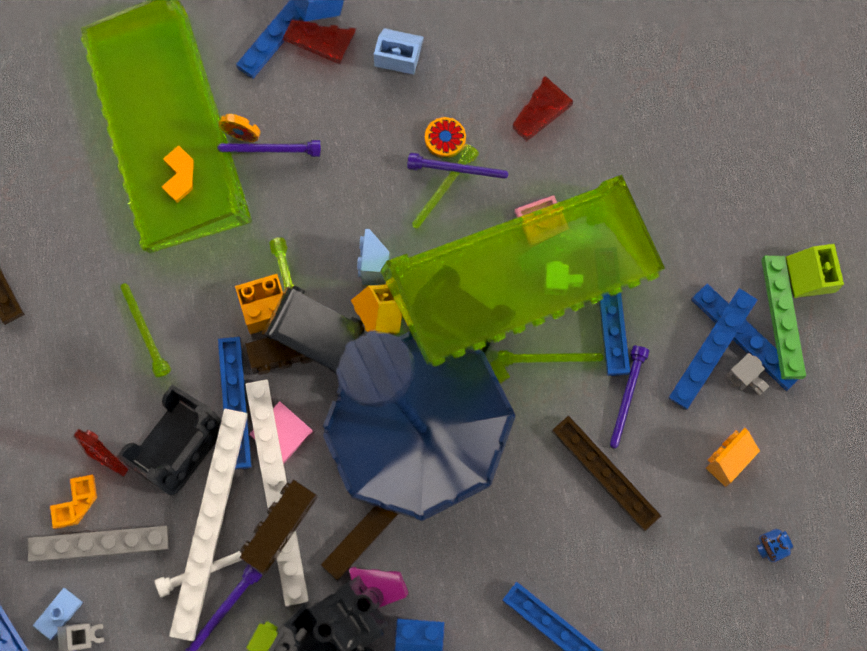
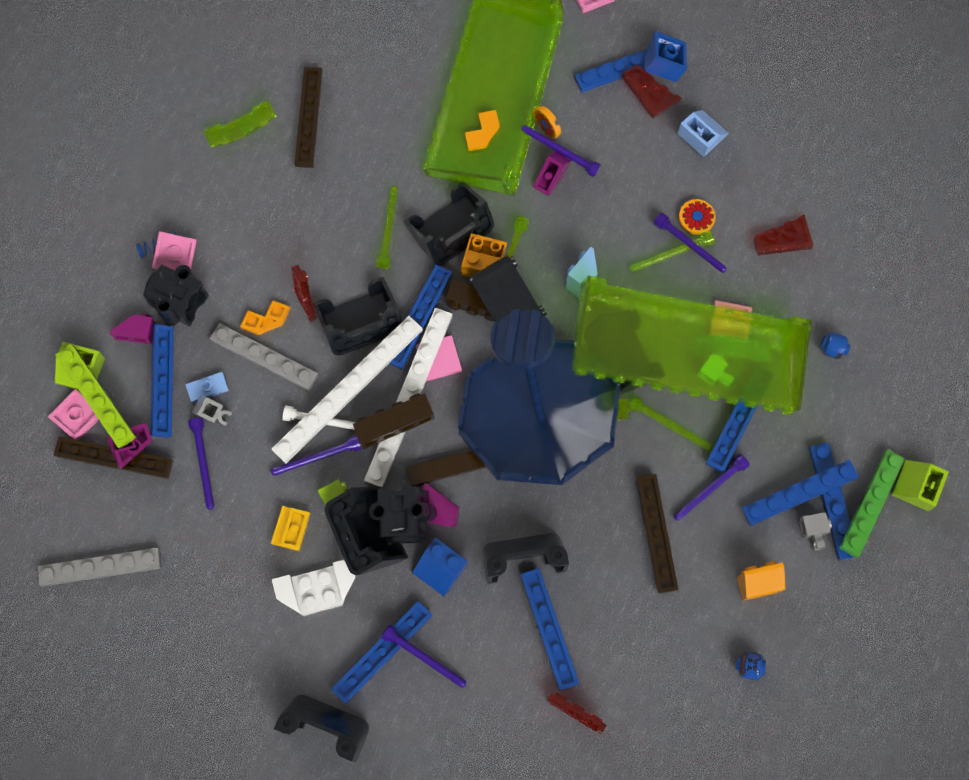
camera: 35 degrees right, 0 degrees up
(209, 290) = (450, 228): none -> black windscreen
(276, 176) = (551, 173): none -> magenta slope
(378, 309) = (562, 311): light orange slope -> none
(469, 591) = (546, 545): none -> black windscreen
(654, 185) = (835, 345): none -> blue head

